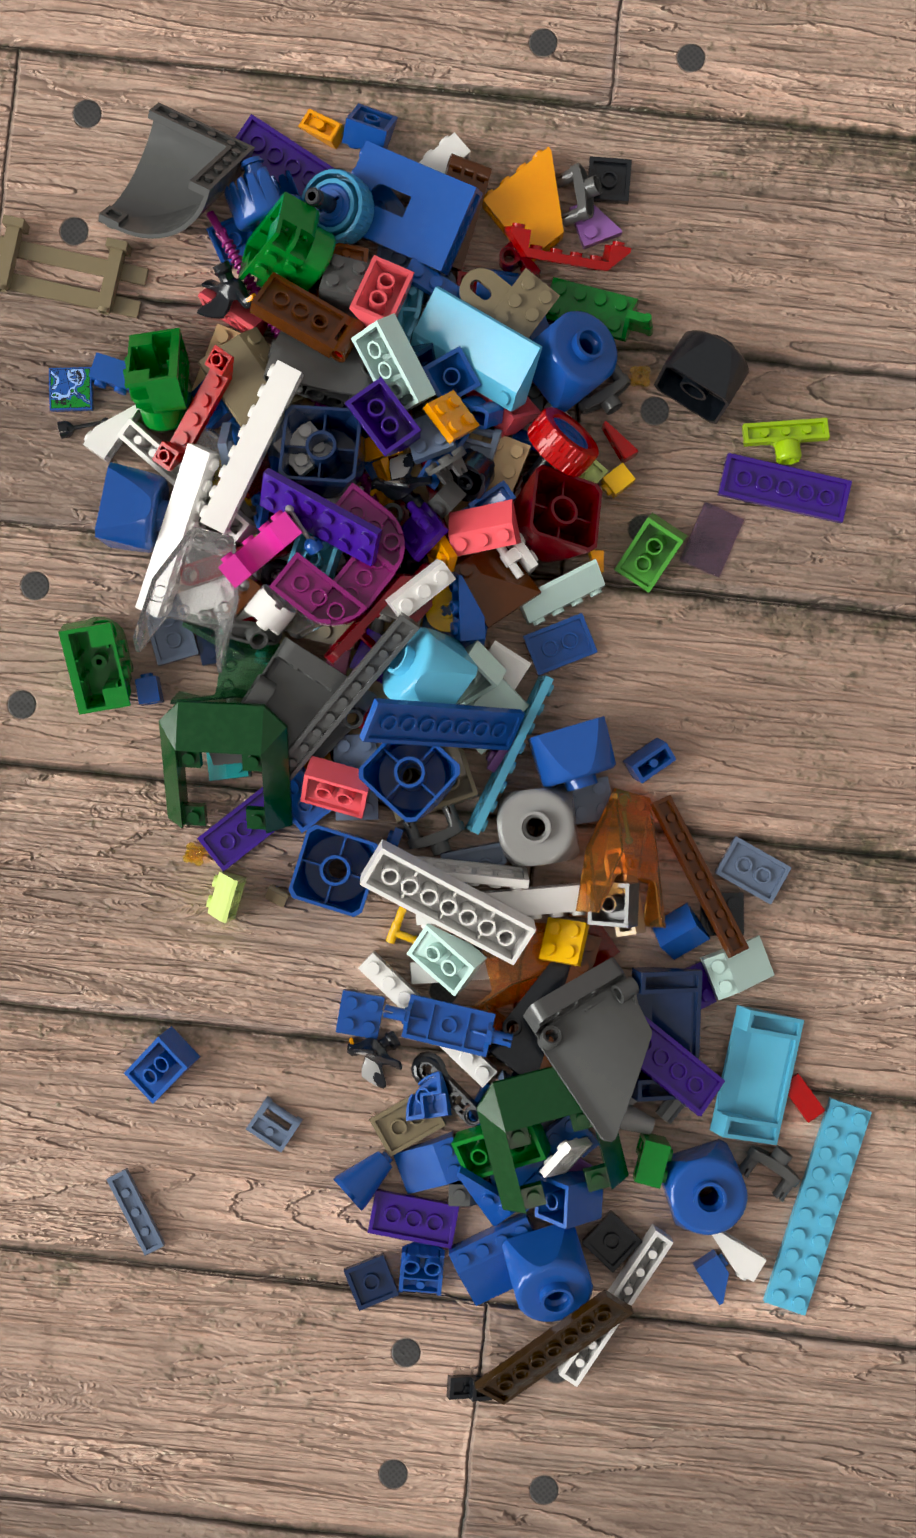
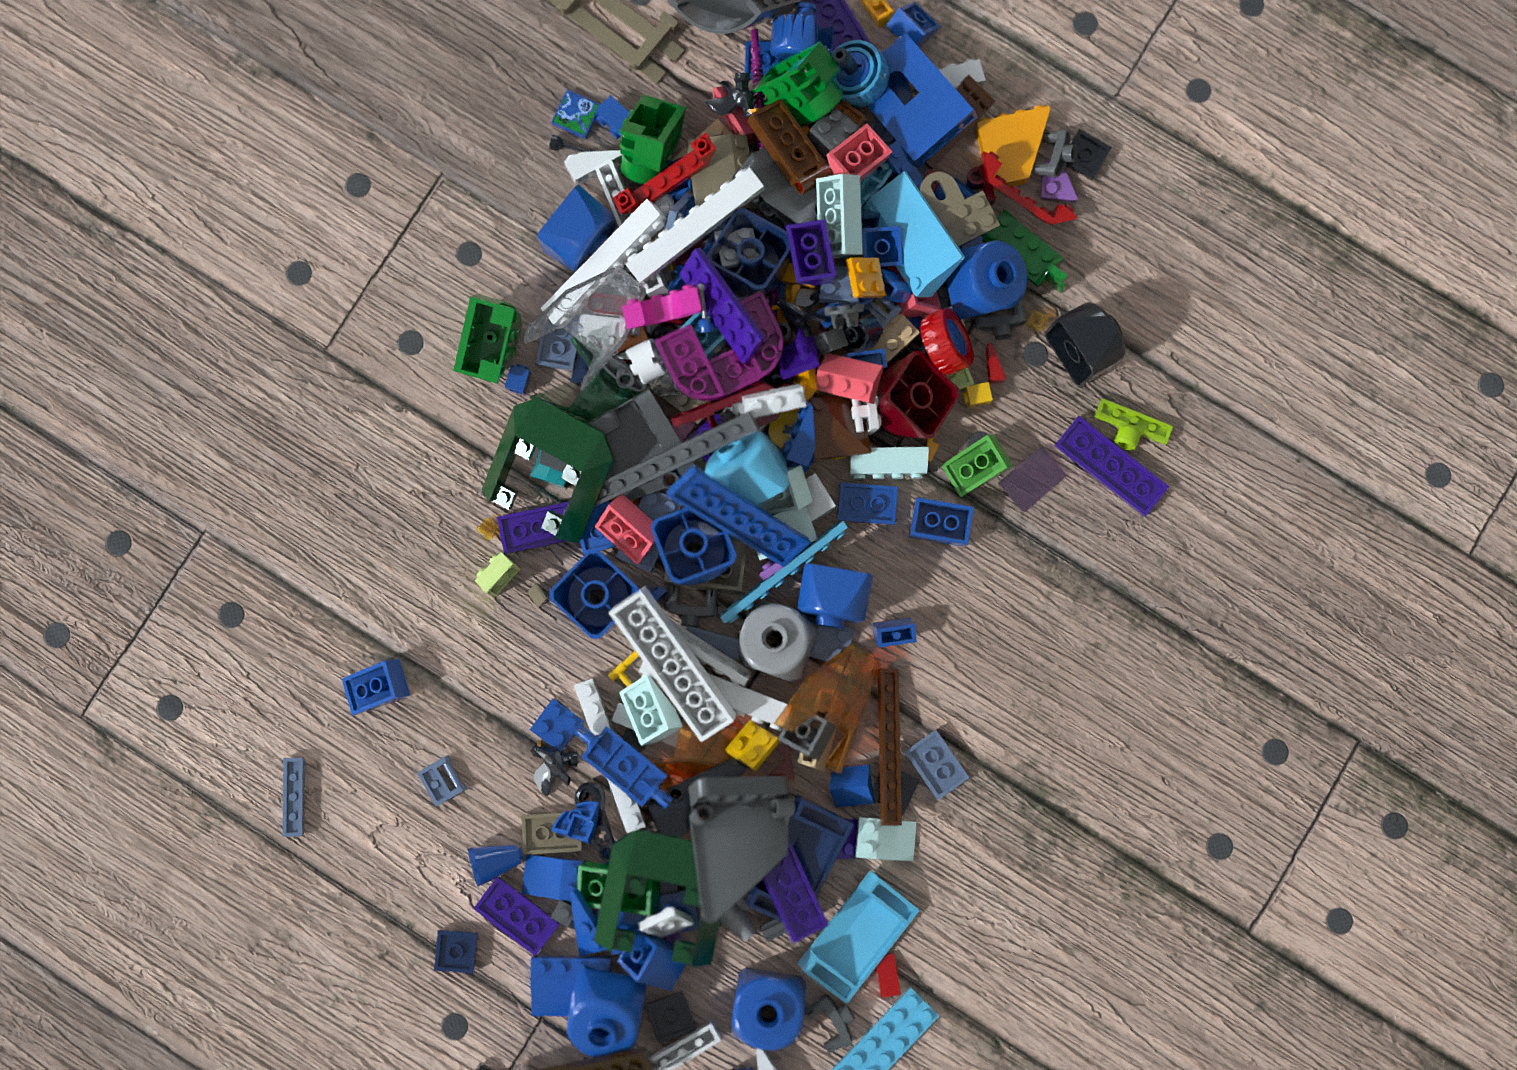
camera: 25 degrees right, 5 degrees down
(421, 1268) = (502, 961): blue slope -> none
(642, 627) = (941, 522): none -> blue brick
(652, 1159) = (736, 962): green brick -> none

